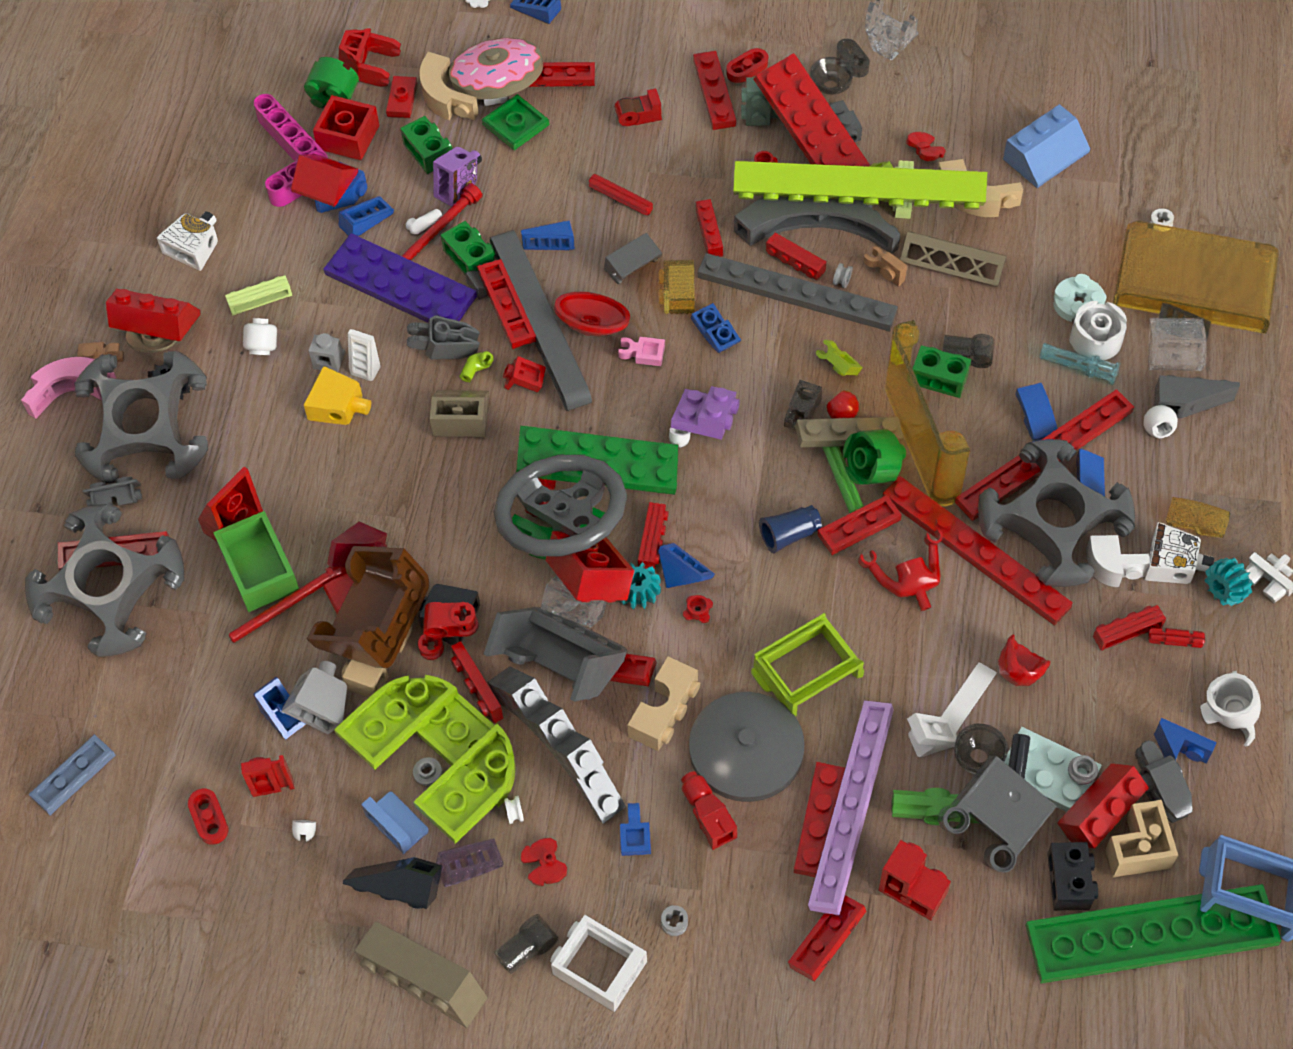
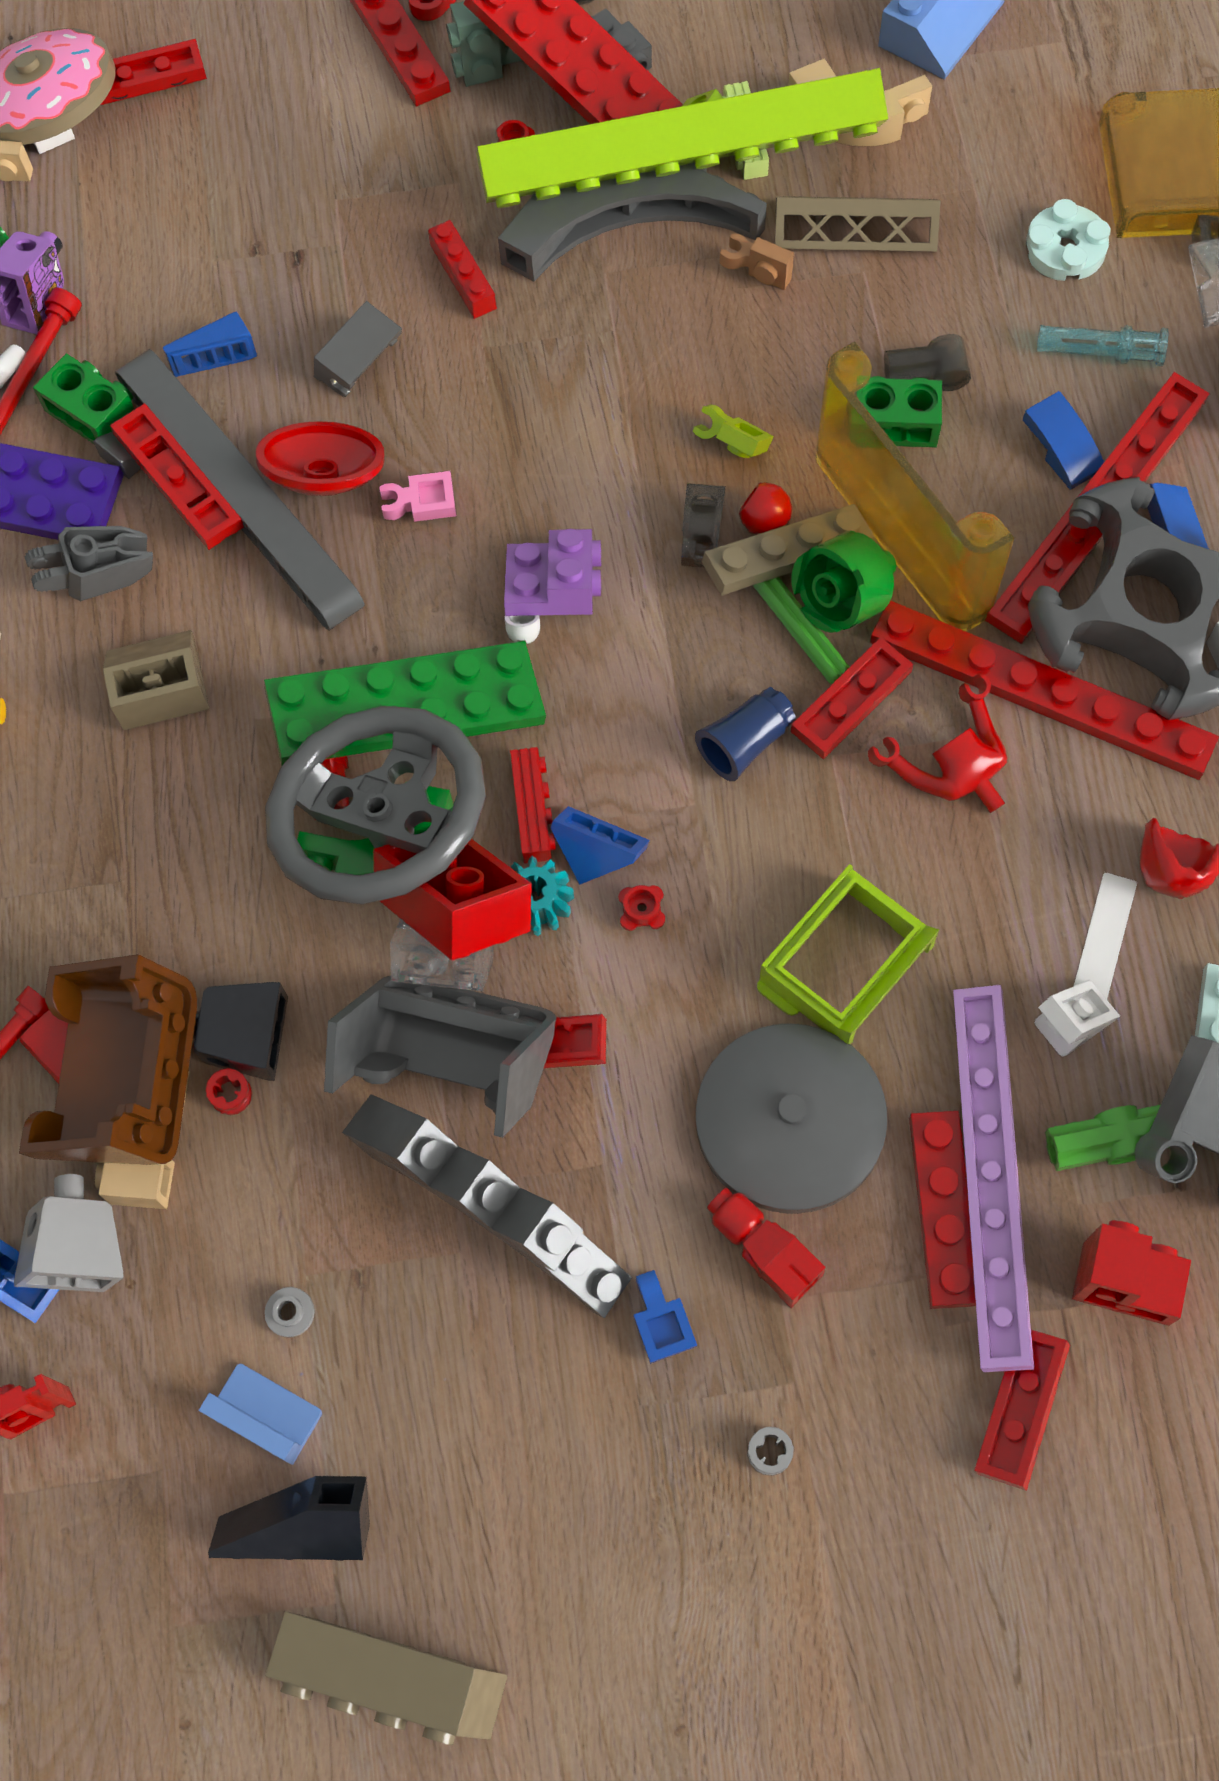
camera: 15 degrees left, 10 degrees up
(303, 827) = (113, 1473): white hinge -> none
(357, 535) = (53, 943): dark red slope -> none
(448, 620) = (243, 1049): red piece -> none
(459, 874) = (378, 1446): clear purple slope -> none
(473, 746) = (314, 1229): lime plate -> none
(476, 363) = (155, 589): lime arm -> none
(476, 683) = (322, 1137): red plate -> none
(513, 809) = (452, 1339): white bush -> none
(515, 122) = (97, 168): green plate -> none
(525, 374) = (241, 587): red bracket -> none
(533, 939) = (551, 1558): clear smoke piece -> none
(551, 870) = (544, 1421): red piece -> none
(620, 194) = (303, 247): red axle -> none
(626, 976) = (611, 1570): white window -> none
(639, 109) = (291, 99): red leg -> none
(654, 724) = (633, 1126): tan arch -> none
(678, 289) = (444, 377): clear yellow brick -> none
(714, 328) = (522, 433): blue slope -> none
(795, 256) = (612, 281): red piece -> none
(798, 292) = (632, 338): dark grey plate -> none
(842, 275) = (695, 294): light grey bush -> none
(922, 142) = (747, 47): red piece -> none
(979, 737) = (1165, 1000): clear smoke piece -> none
(1098, 330) = (1117, 283): white brick -> none
(1162, 214) = (1152, 74): white bush -> none

